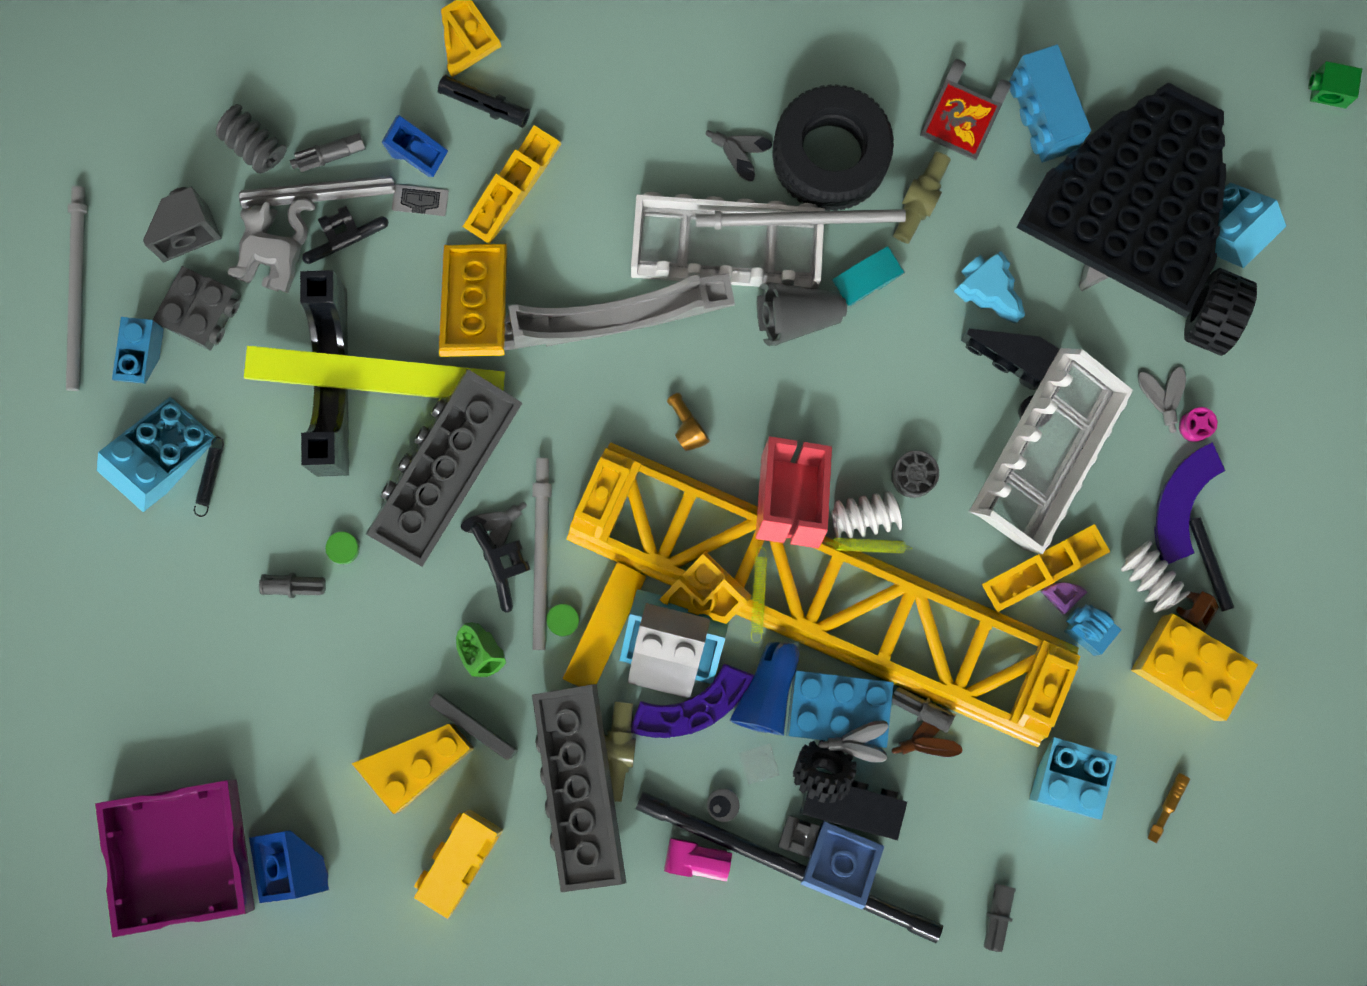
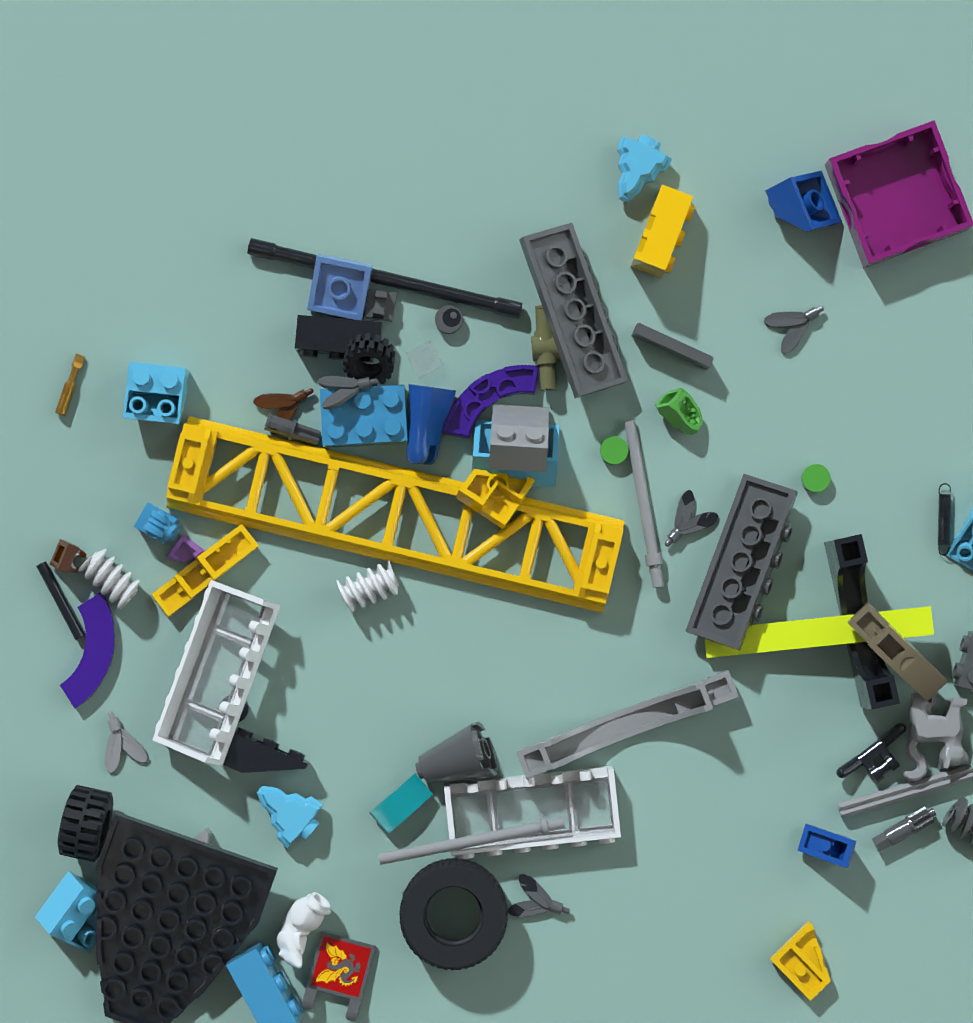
camera: 175 degrees right, 5 degrees up
(291, 585) = (851, 438): dark grey axle -> none
(292, 334) = (897, 651): none -> dark tan slope
(324, 728) = (796, 321): none -> dark grey piece
(413, 766) = (717, 303): yellow wedge -> none
(420, 200) = (813, 801): sticker -> none
(469, 947) = (639, 165): none -> medium azure rock
(473, 300) = (746, 715): yellow tile -> none
(493, 559) = (674, 478): black piece -> none
(494, 105) = (765, 900): black pin -> none
(511, 185) = (734, 829): yellow slope -> none
(604, 626) = (577, 451): yellow slope -> none
(690, 433) = (532, 633): pearl gold bar -> none
(690, 859) = (470, 269): dark pink piece -> none
(759, 574) = (452, 501): neon yellow piece -> none
(794, 495) = (435, 592): coral piece -> none
(879, 550) = (358, 561): neon yellow piece -> none
(915, 474) = (331, 632): dark grey wheel -> none
(922, 197) = (365, 885): olive pin -> none
(997, 173) = (301, 919): none -> white animal
(999, 917) = (201, 268): dark grey axle -> none
(1194, 667) = (65, 506): yellow brick -> none
(1203, 419) = (81, 723): dark pink wheel -> none

